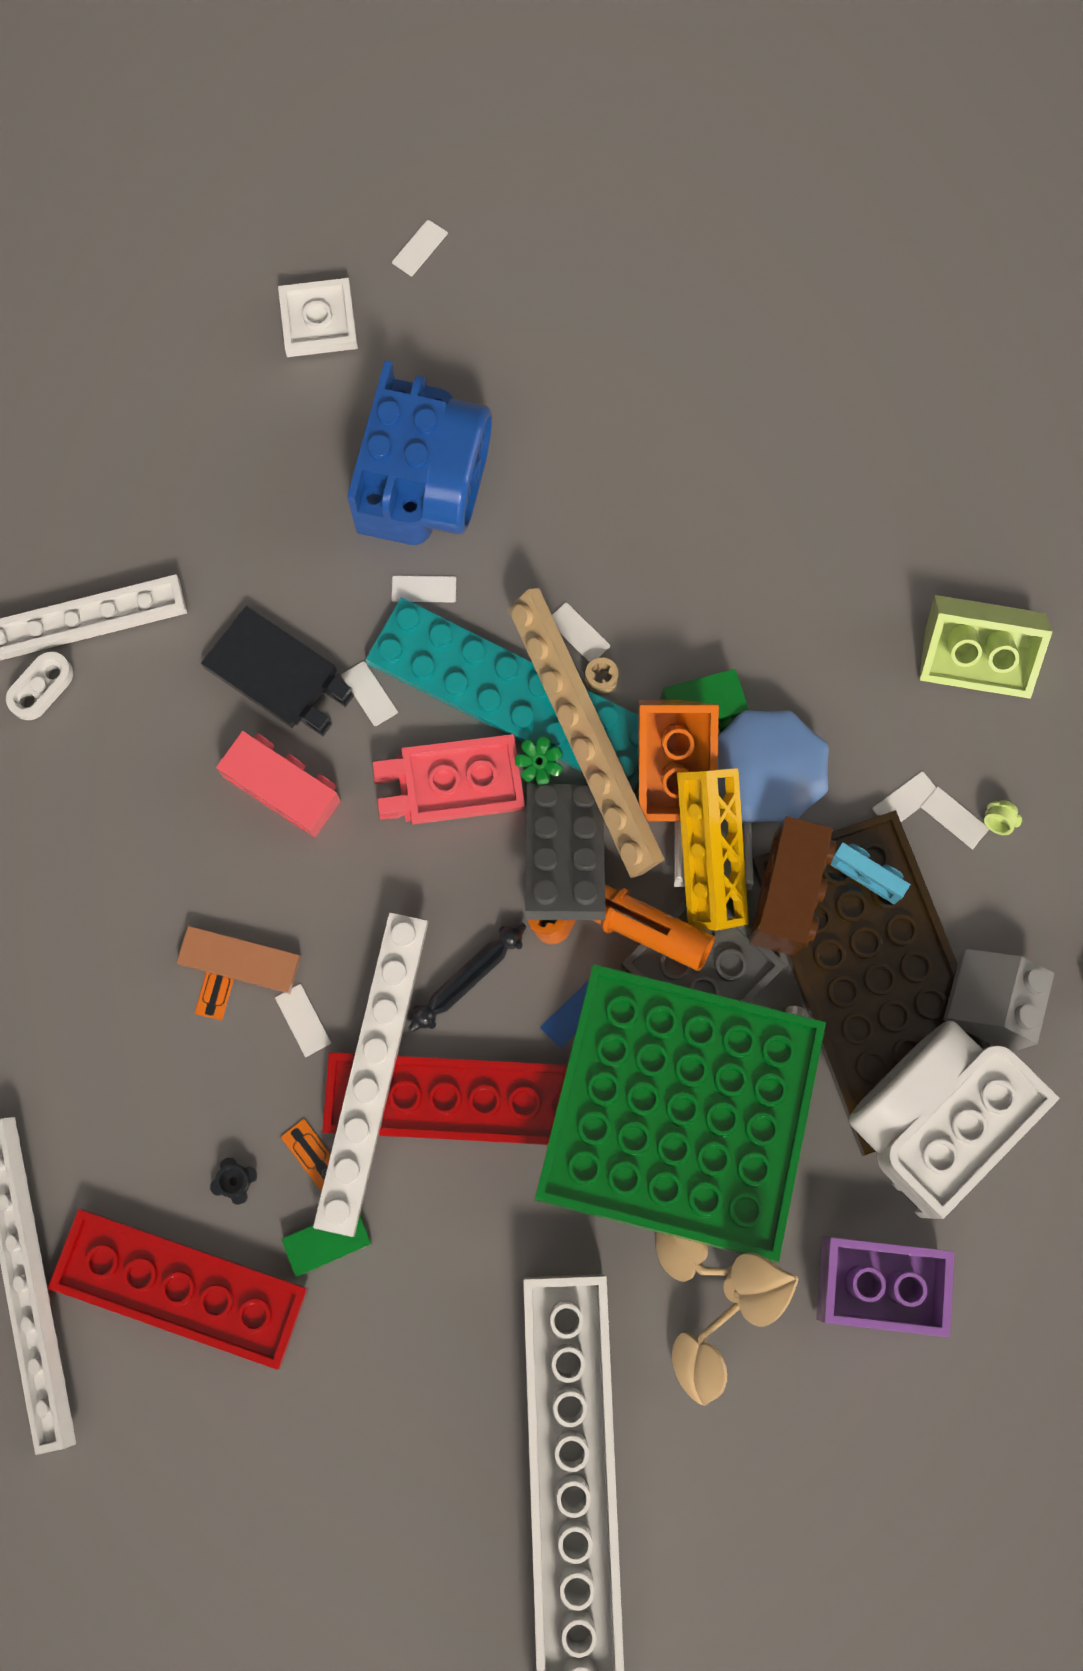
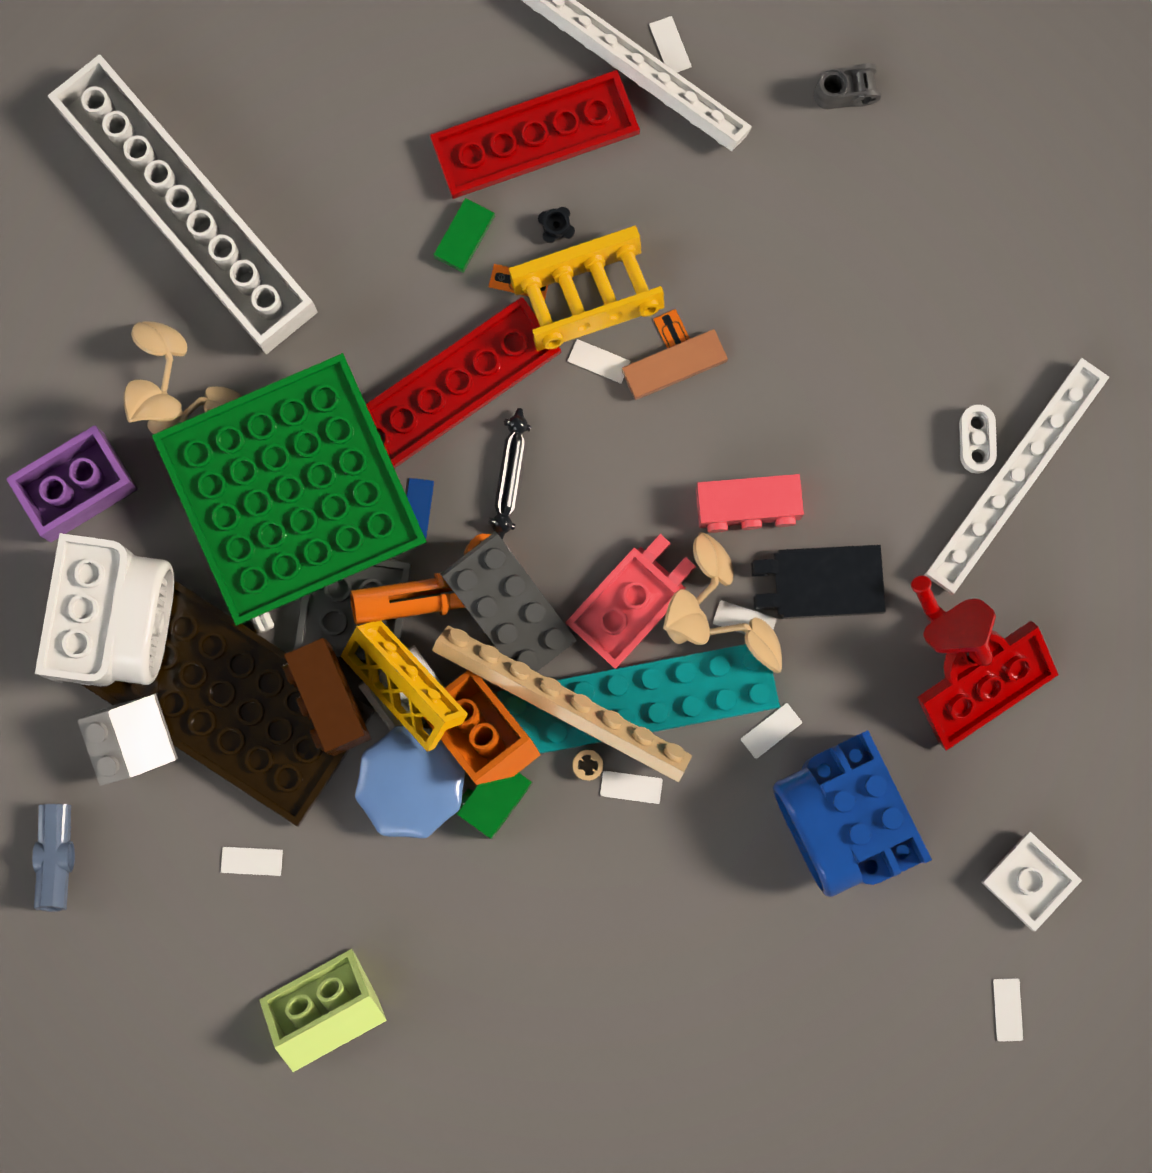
camera: 145 degrees right, 5 degrees up
(202, 500) = (988, 679): none -> red plate
(228, 1116) = (576, 260): none -> yellow fence
(371, 1075) = (520, 358): white plate -> none
(416, 716) = (688, 622): none -> tan plant
(533, 760) = (579, 661): green plant -> none
(880, 879) = (267, 760): medium azure plate -> none
(907, 798) = (297, 848): white sticker -> none
(1002, 817) = (216, 884): yellowish green plate -> none

